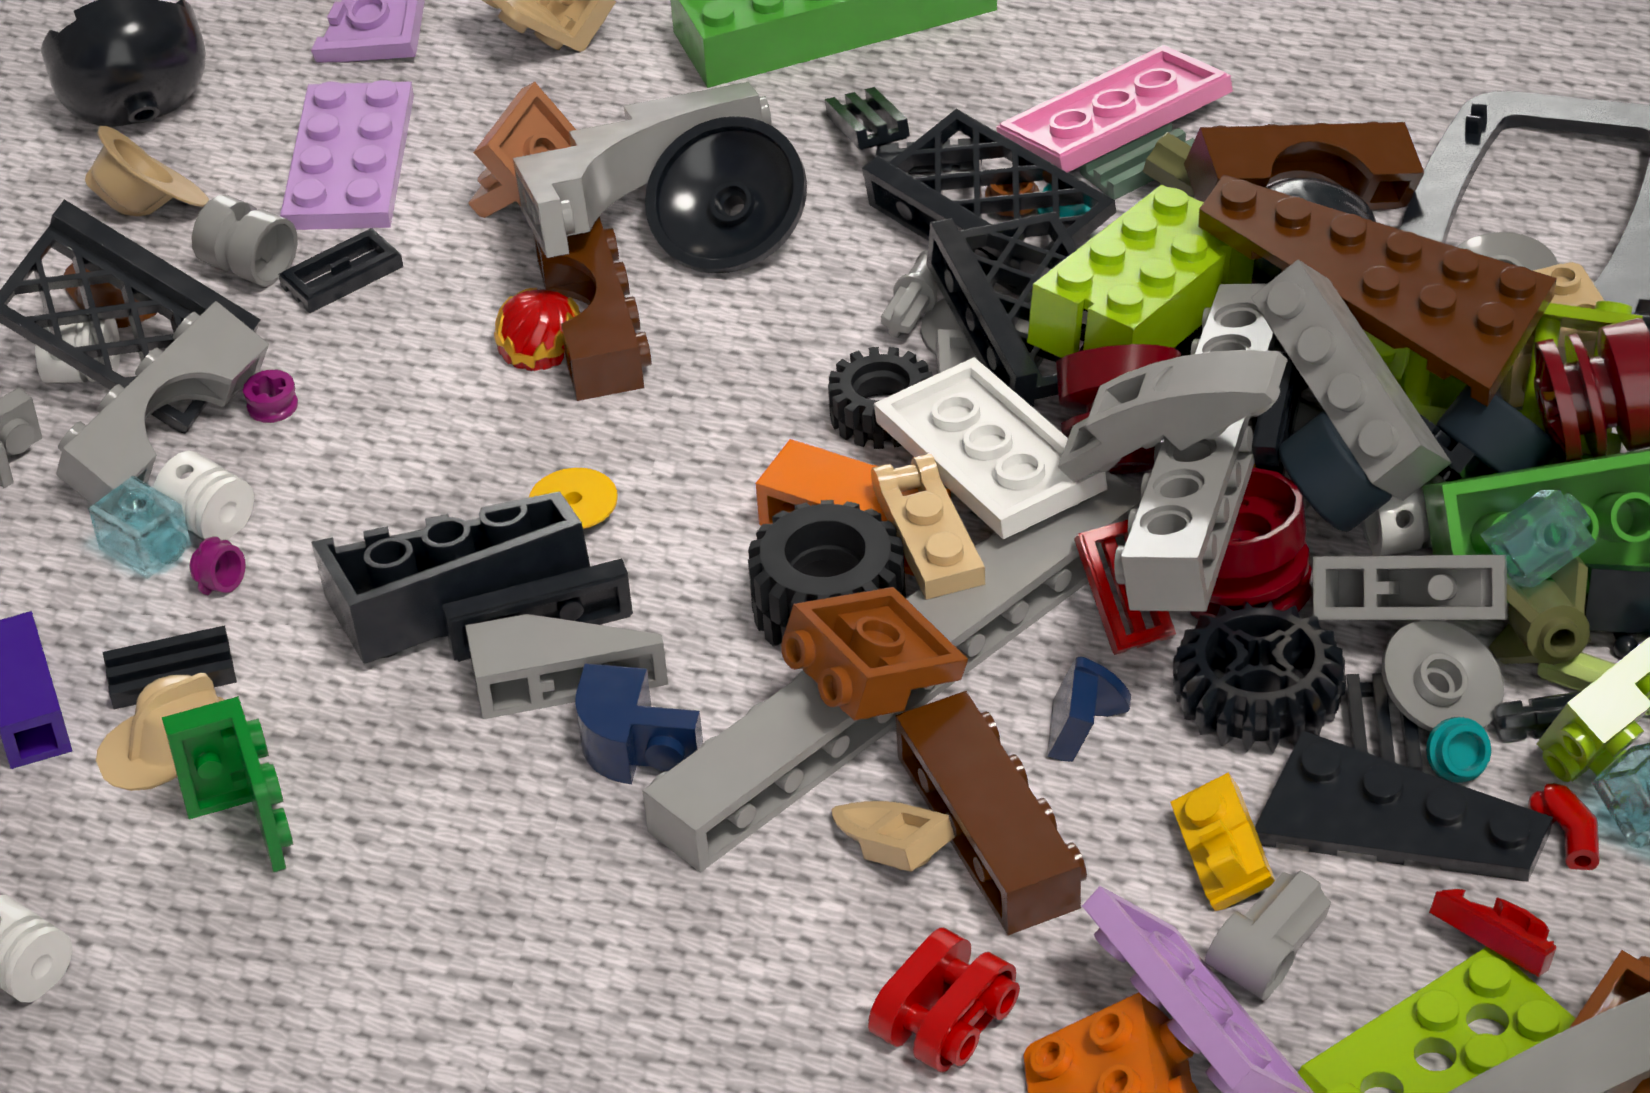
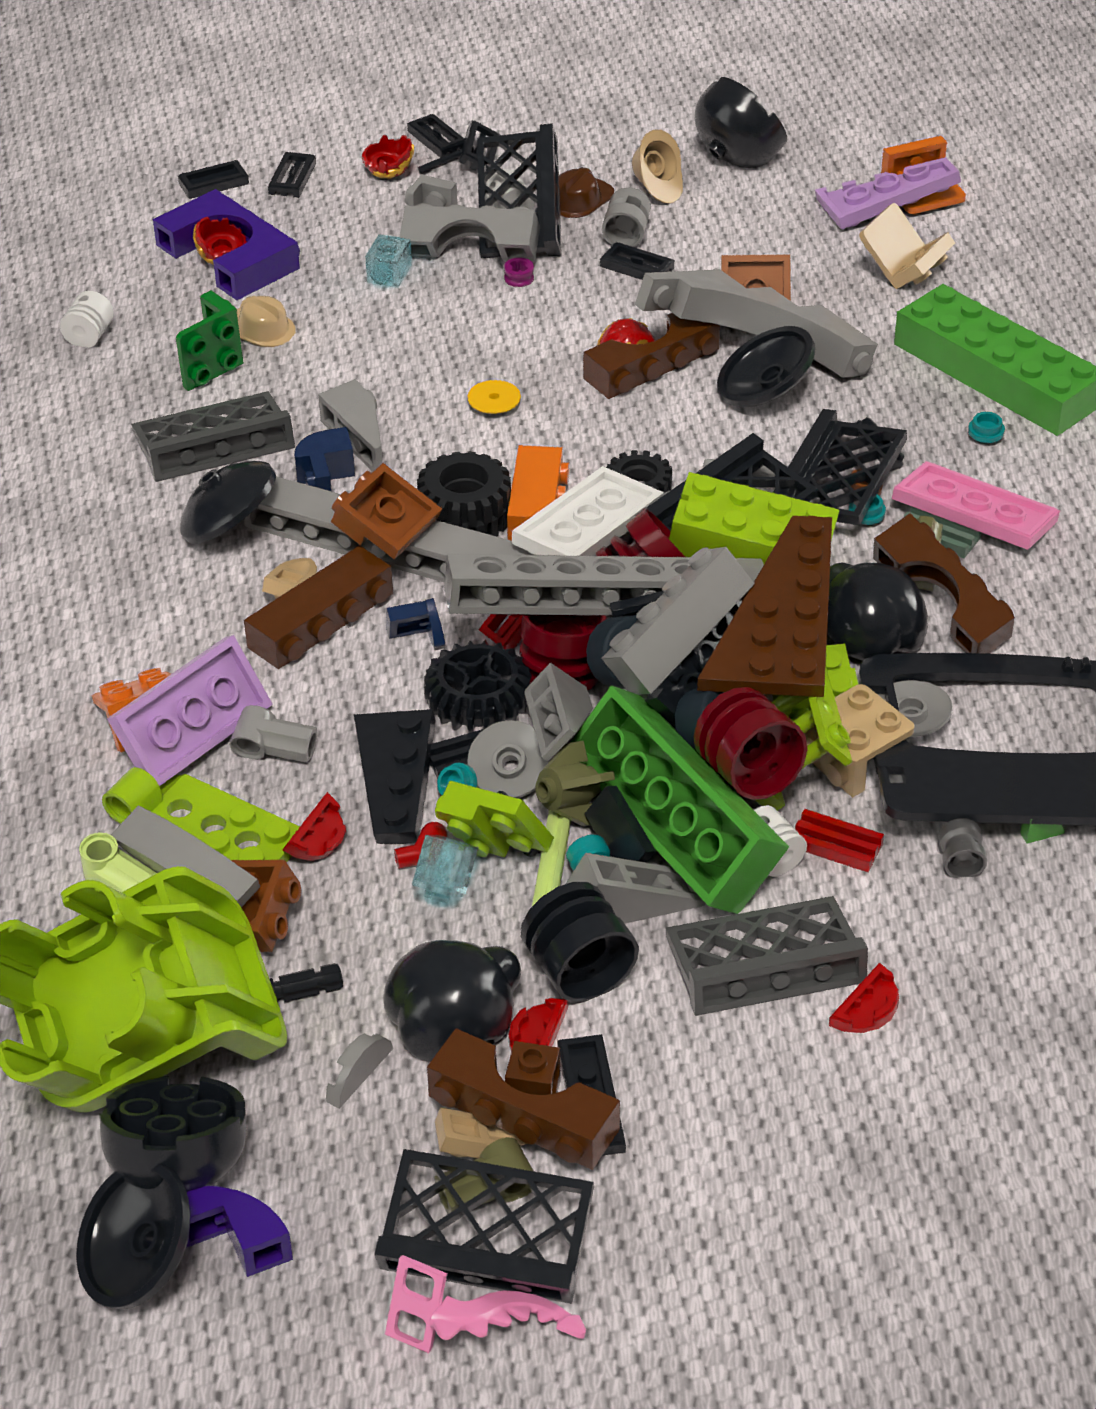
camera: 65 degrees right, 0 degrees up
(192, 653) = (308, 305): black tile -> none
(211, 497) = (419, 271): white piece -> none
(217, 566) = (371, 301): magenta plate -> none
(348, 155) = (736, 232): lavender plate -> none
(394, 586) = (398, 365): black wedge -> none
(494, 862) = (227, 442): none -> dark grey fence
(583, 595) = (399, 409): black tile -> none
(716, 859) = (225, 499): none -> black dish
(877, 116) = (891, 406): black tile -> none
(929, 527) = (505, 513): tan plate -> none
(944, 1000) = (176, 626): red brick -> none
(958, 55) = (986, 427): none -> teal plate
(1172, 399) = (582, 539): light grey slope -> none
(1222, 842) = (336, 705): yellow plate -> none
(1540, 536) = (610, 747): clear light blue brick -> none

